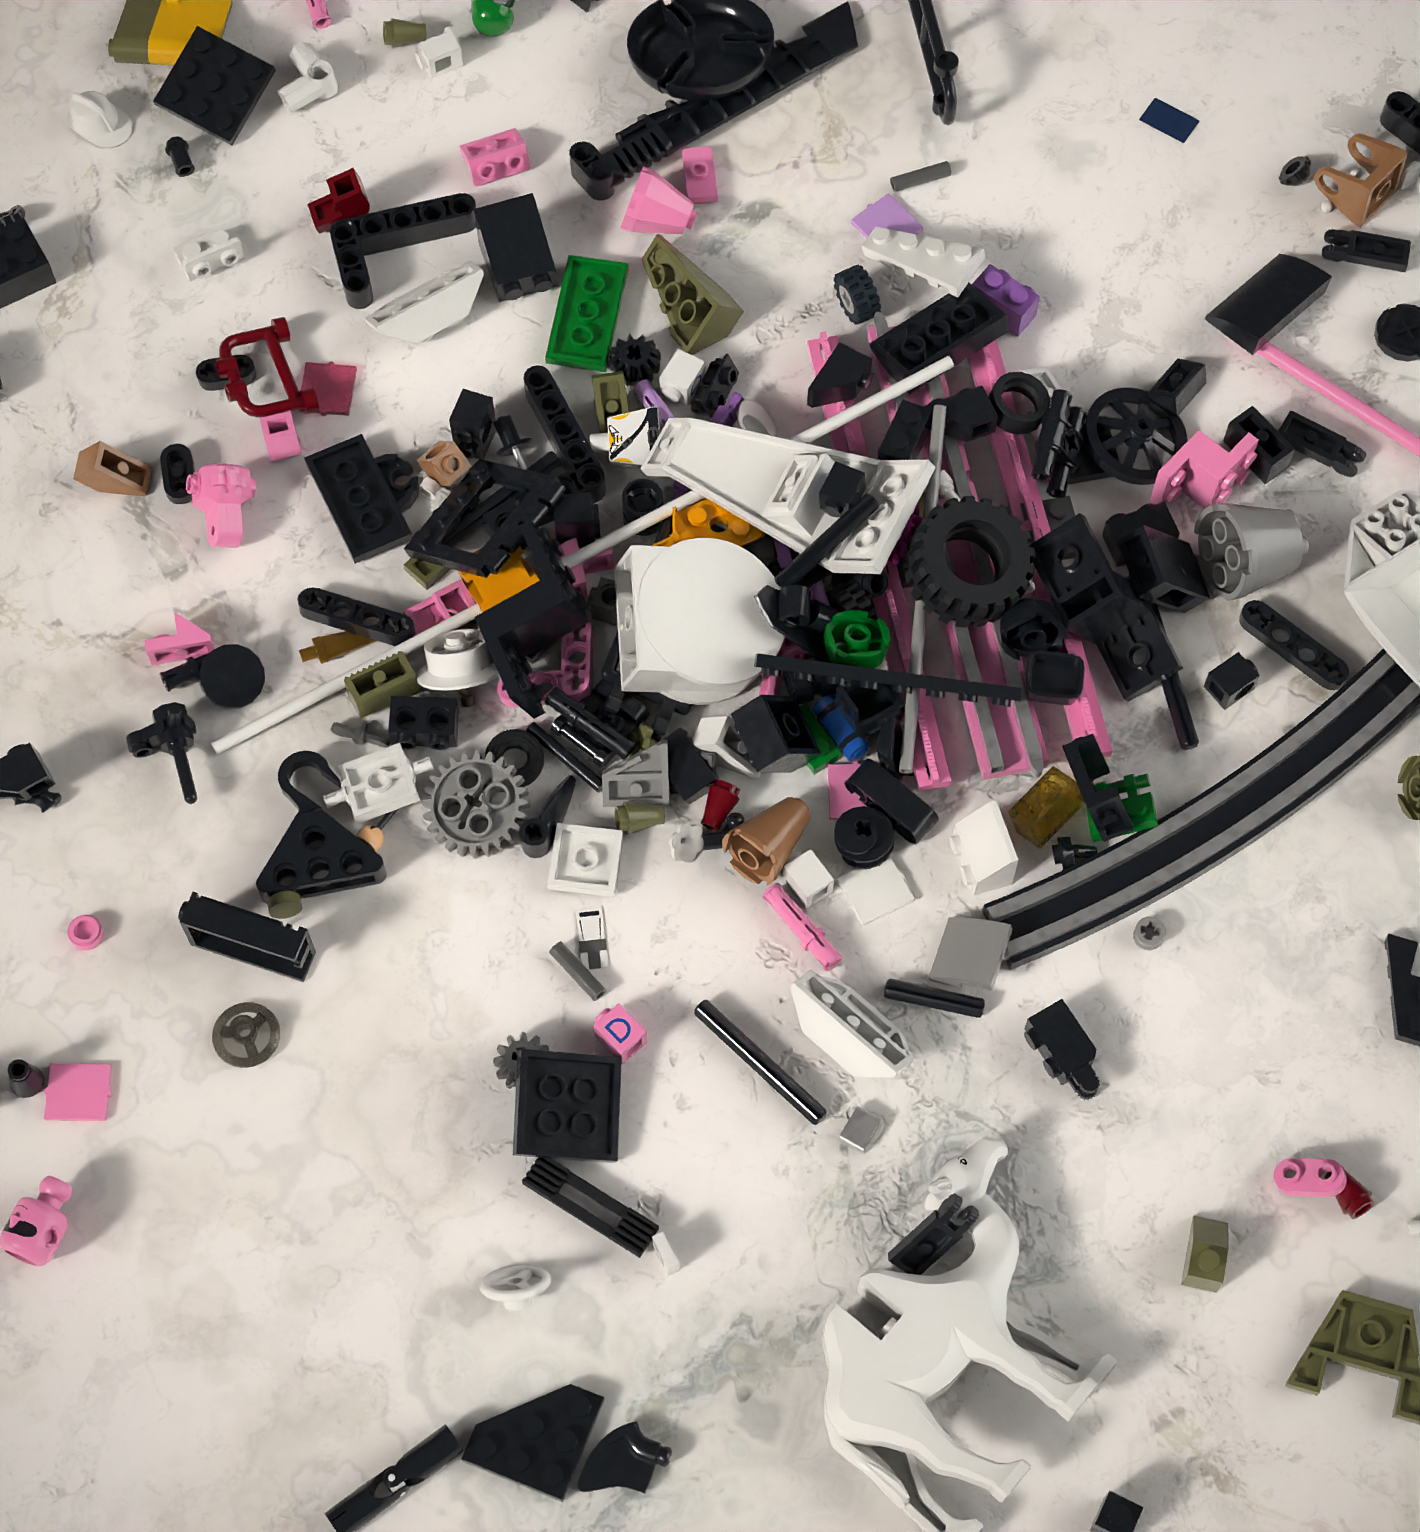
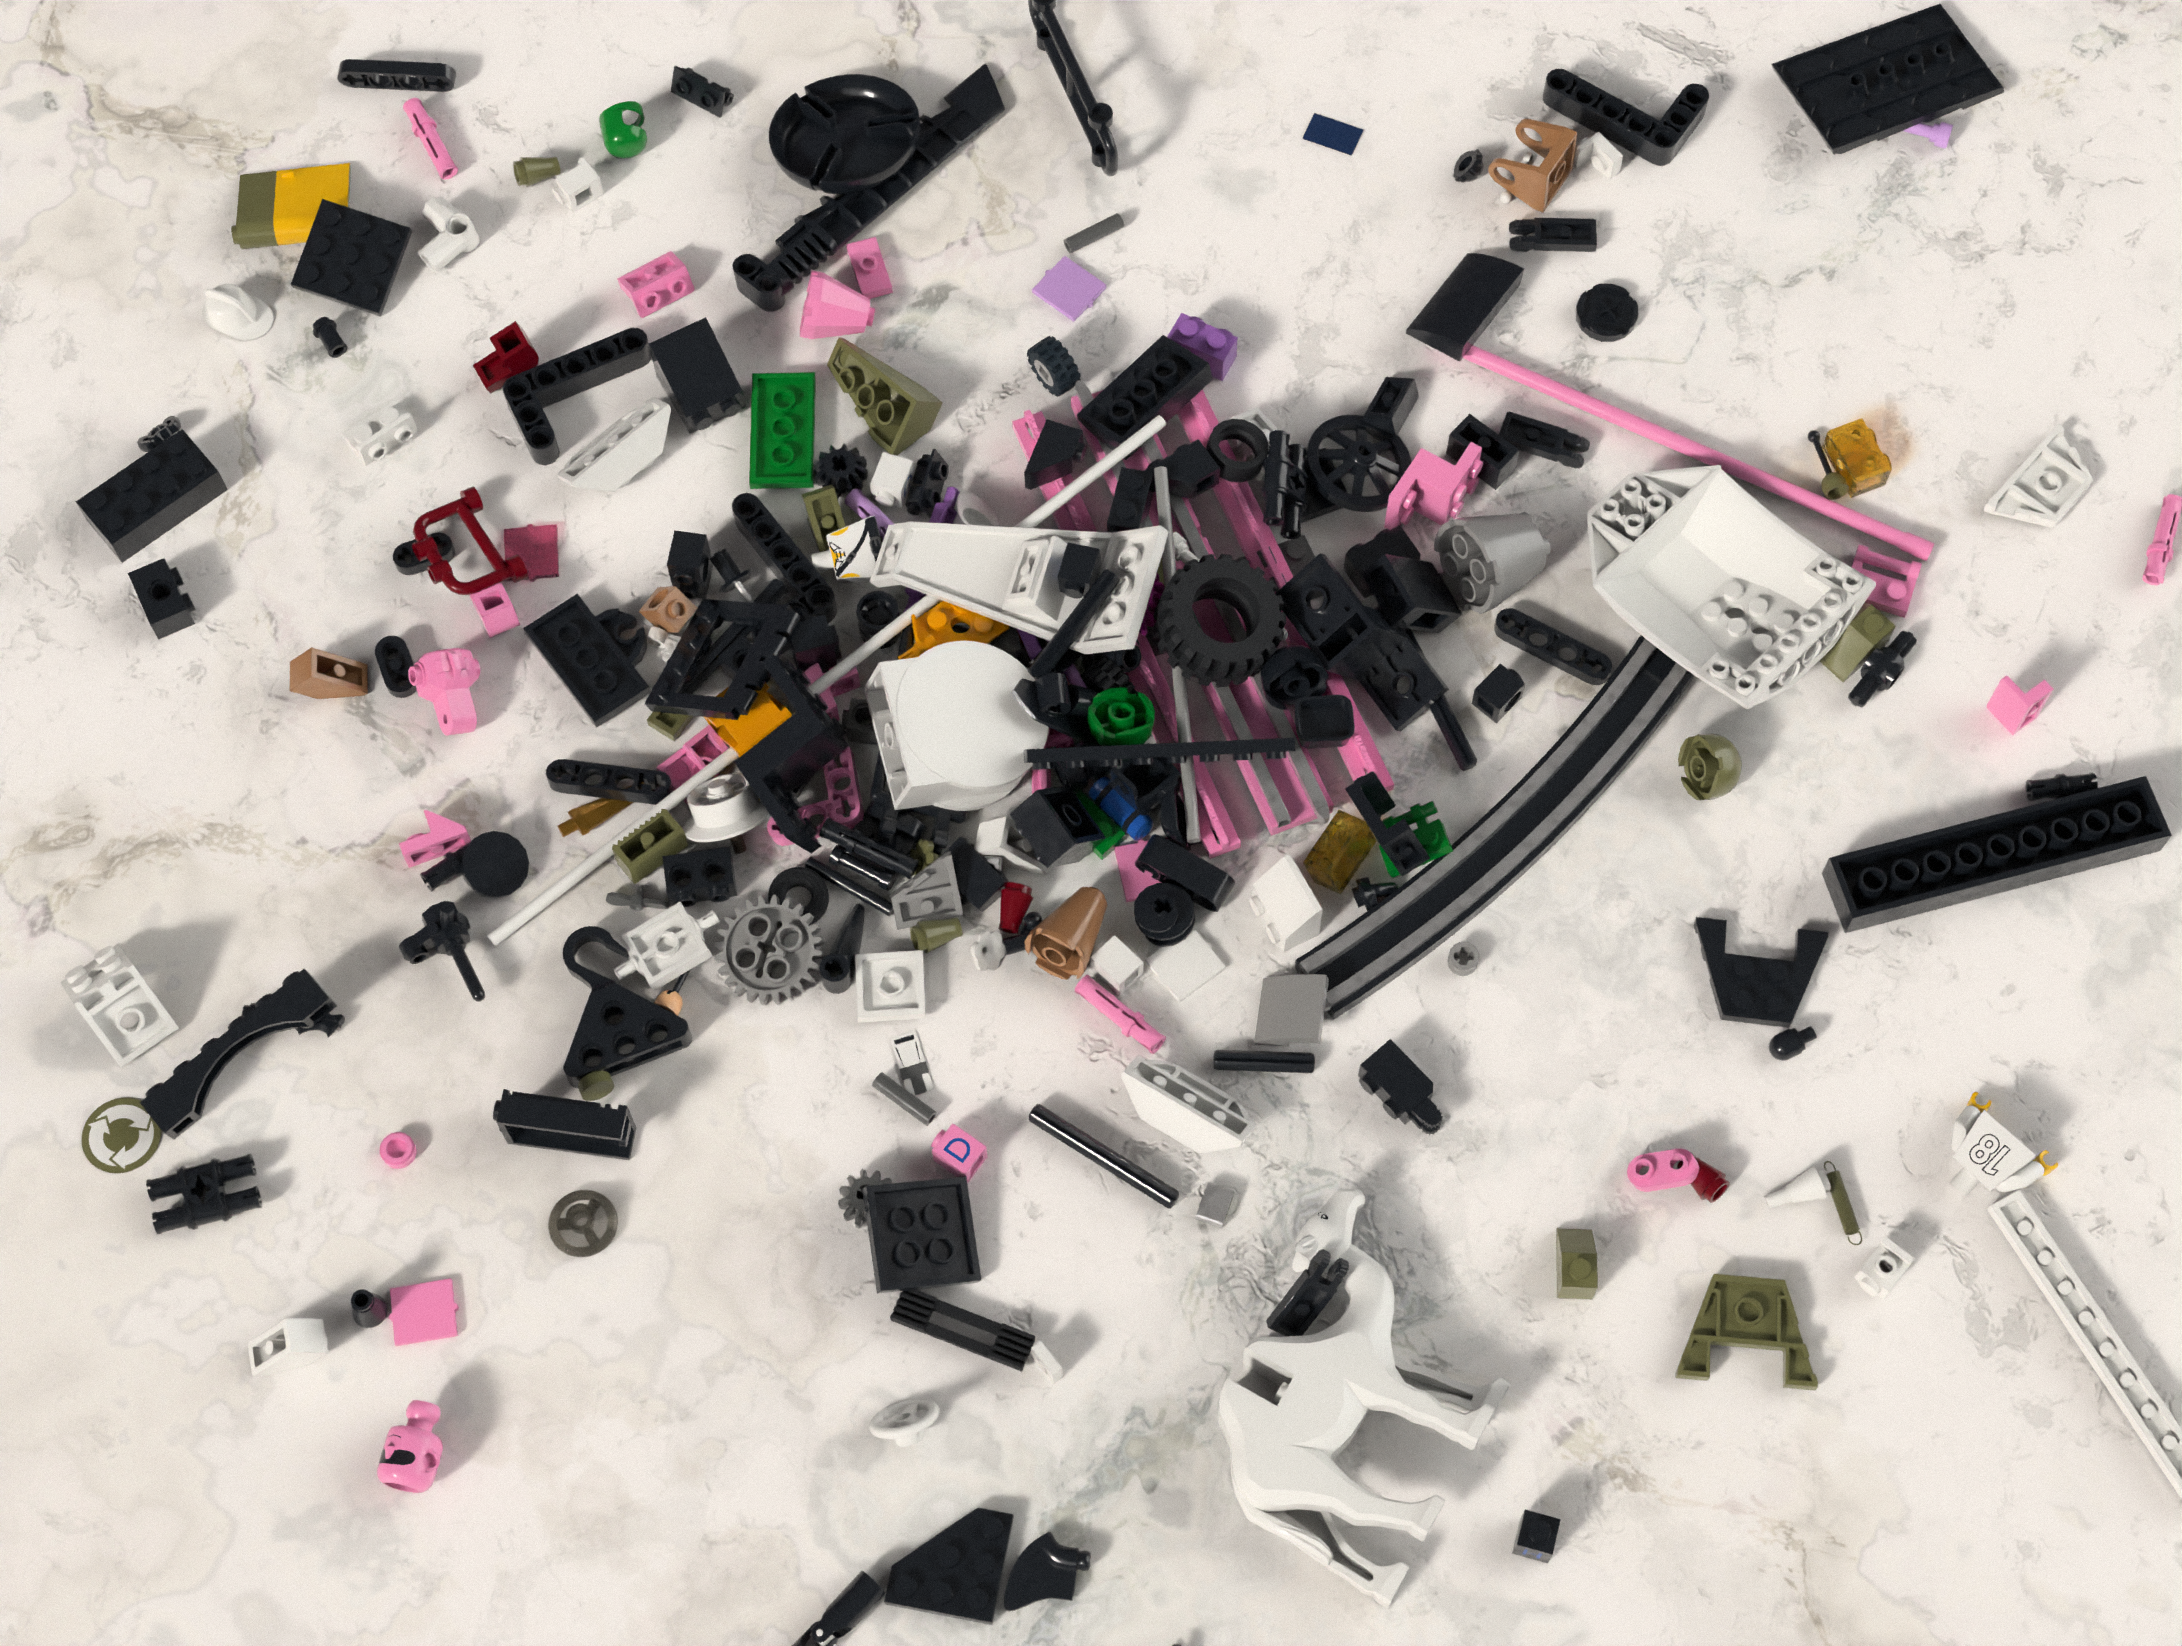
camera: 10 degrees left, 0 degrees up
(934, 259) = (1123, 317): white wing -> none

